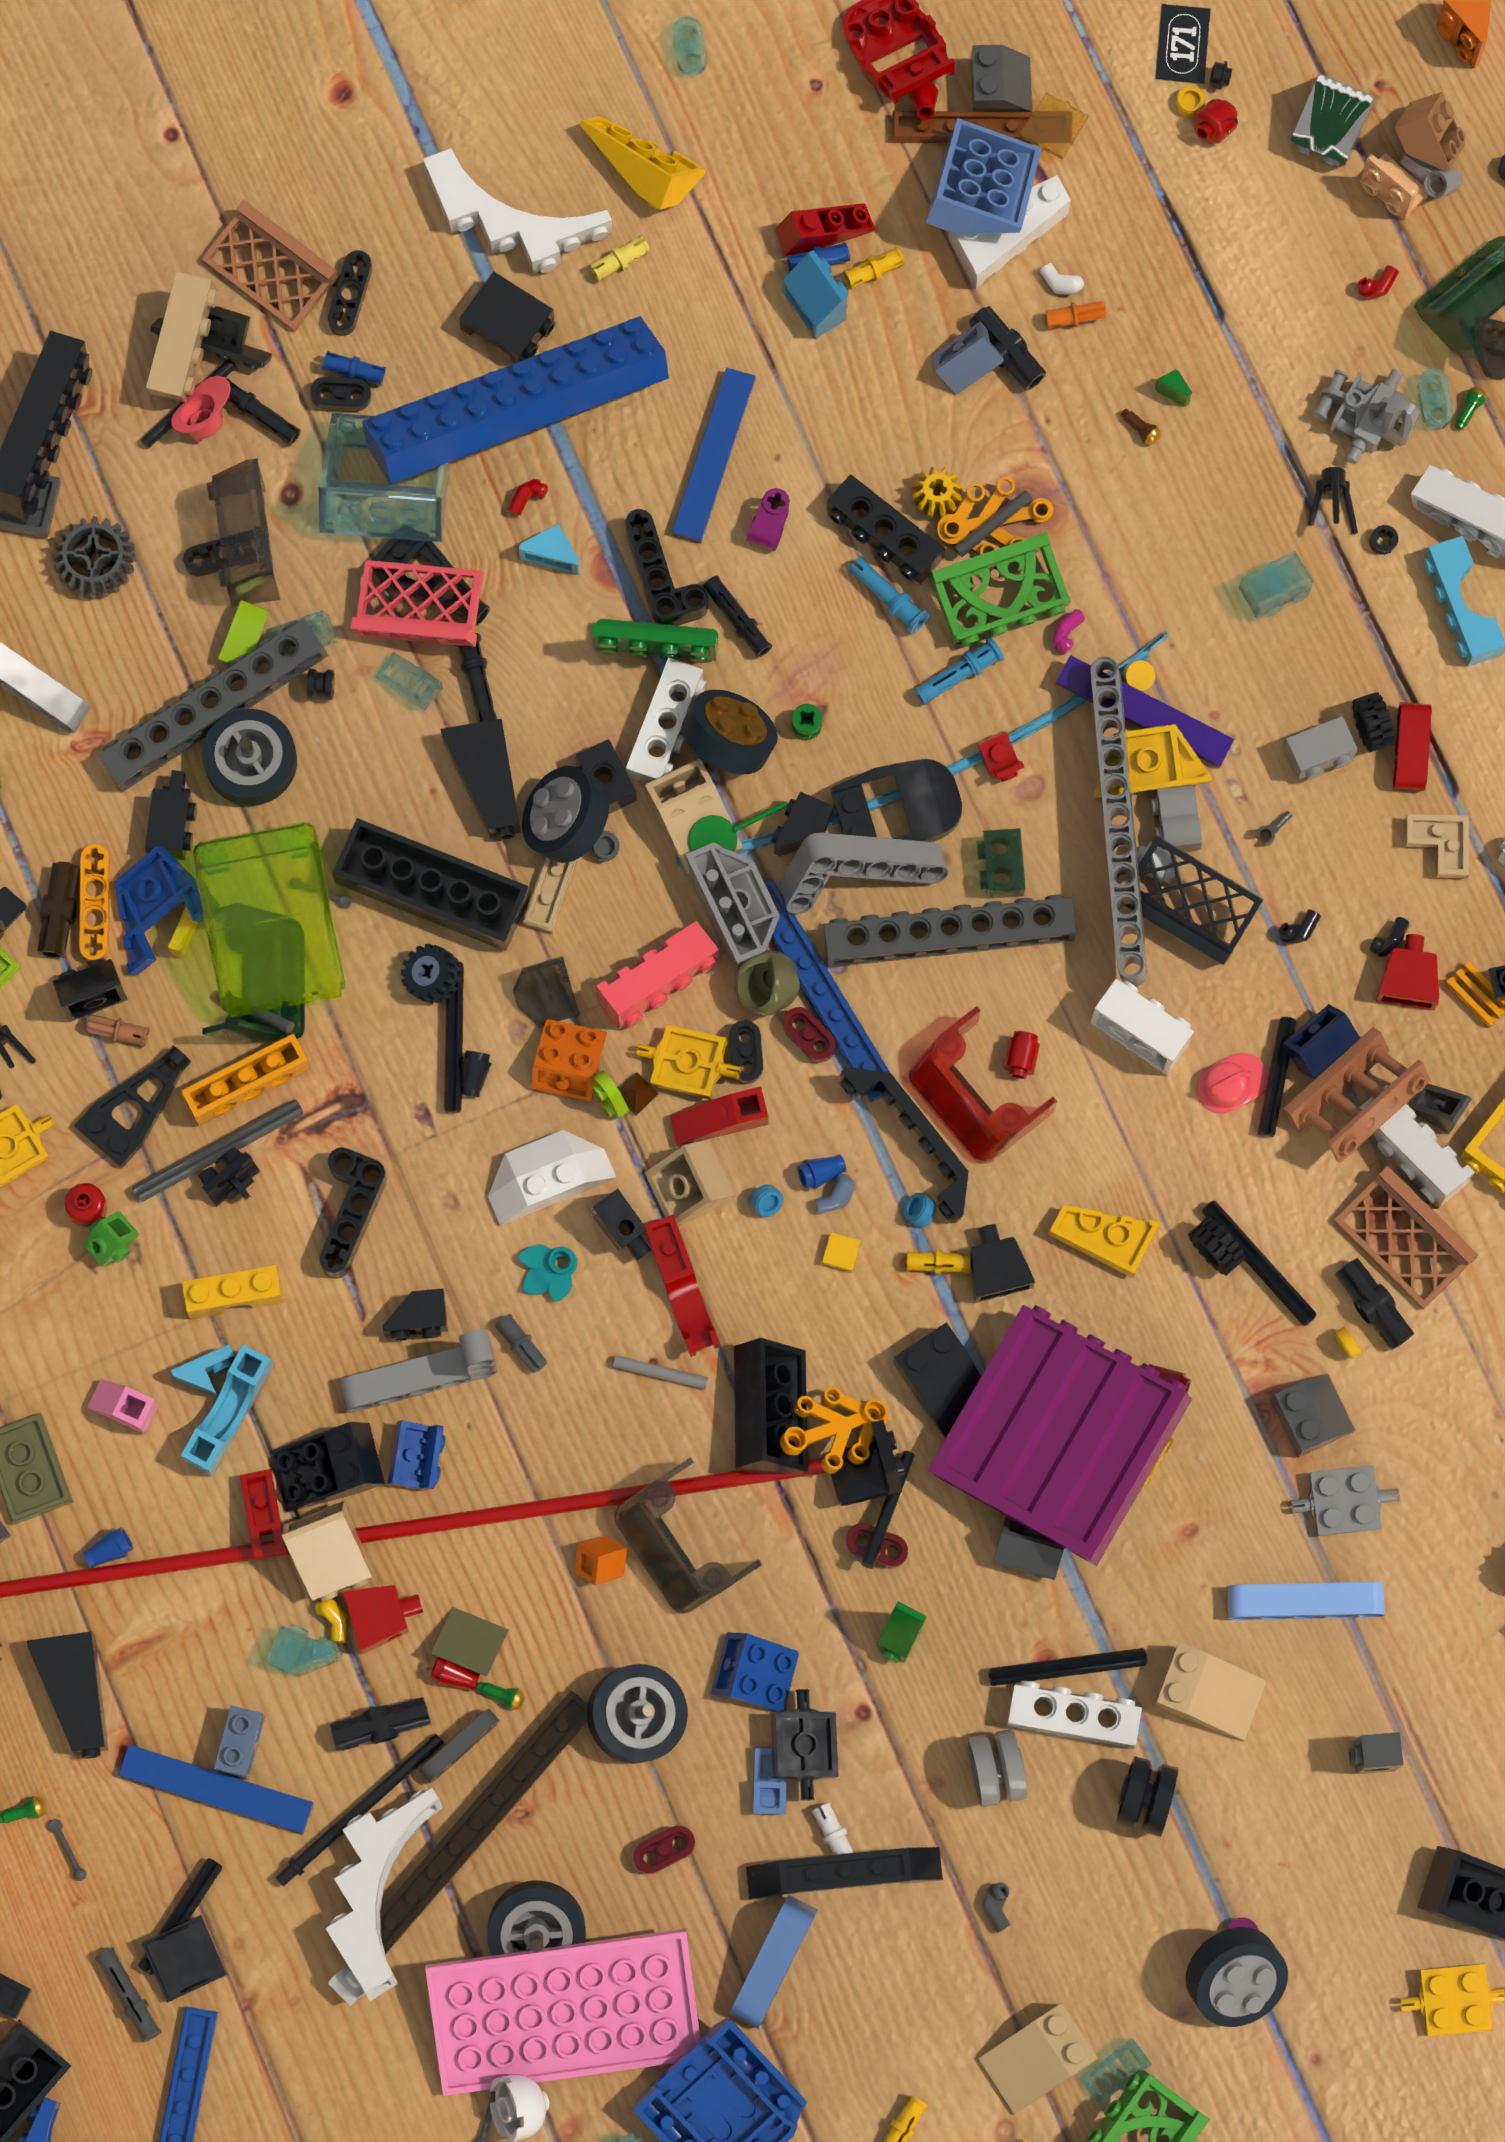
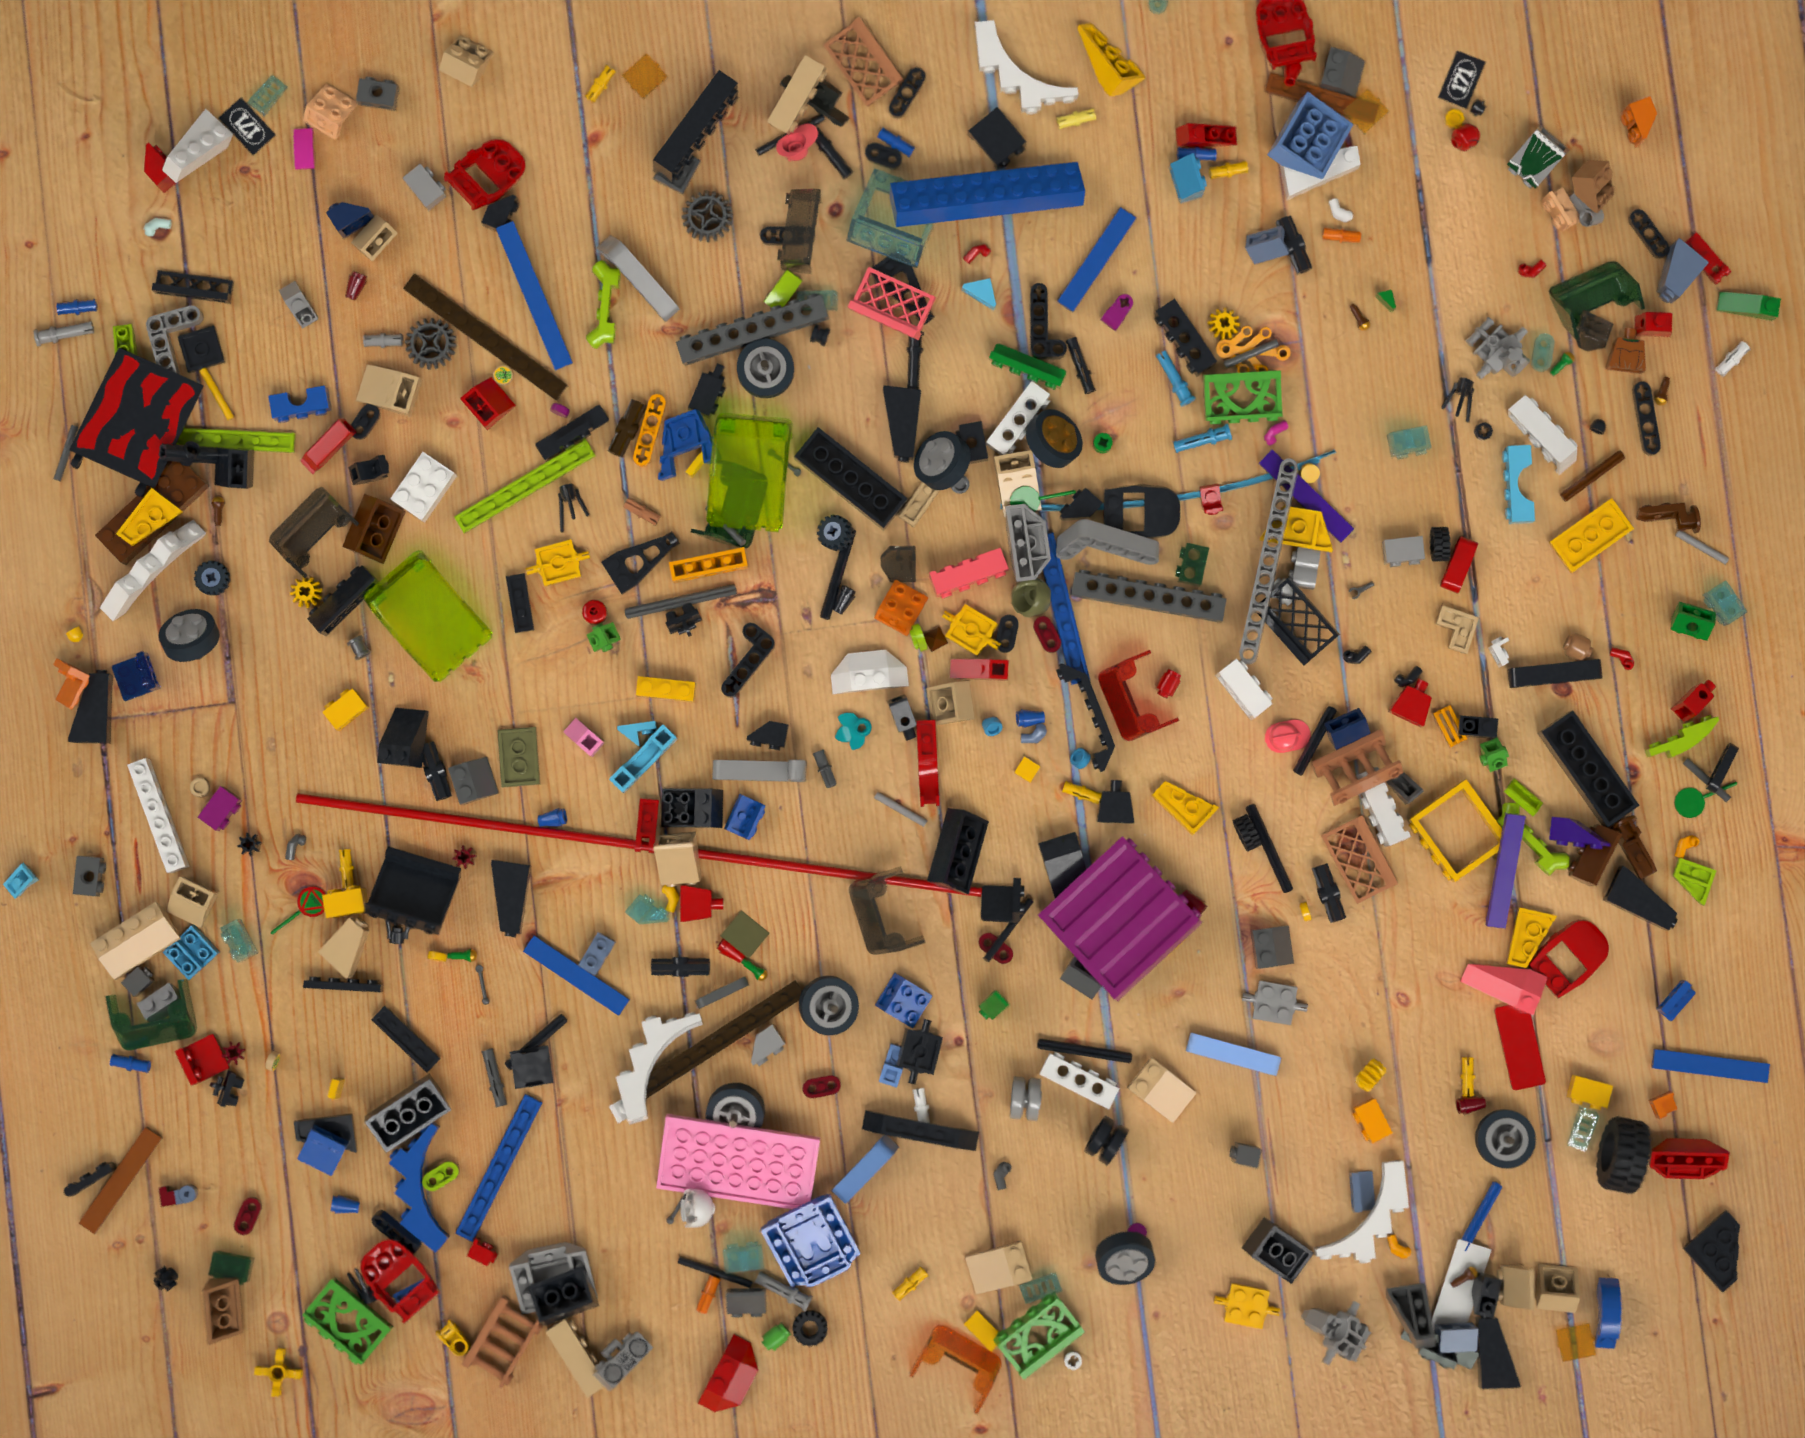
camera: 15 degrees right, 10 degrees up
(89, 989) = (632, 483): black slope -> none
(334, 1832) = (609, 1033): black bar -> none
(421, 701) = (878, 363): clear light blue slope -> none
(554, 1806) = (766, 1043): none -> light grey slope
(600, 1560) = (833, 909): orange panel -> none
(836, 1425) = (993, 872): light orange plant -> none

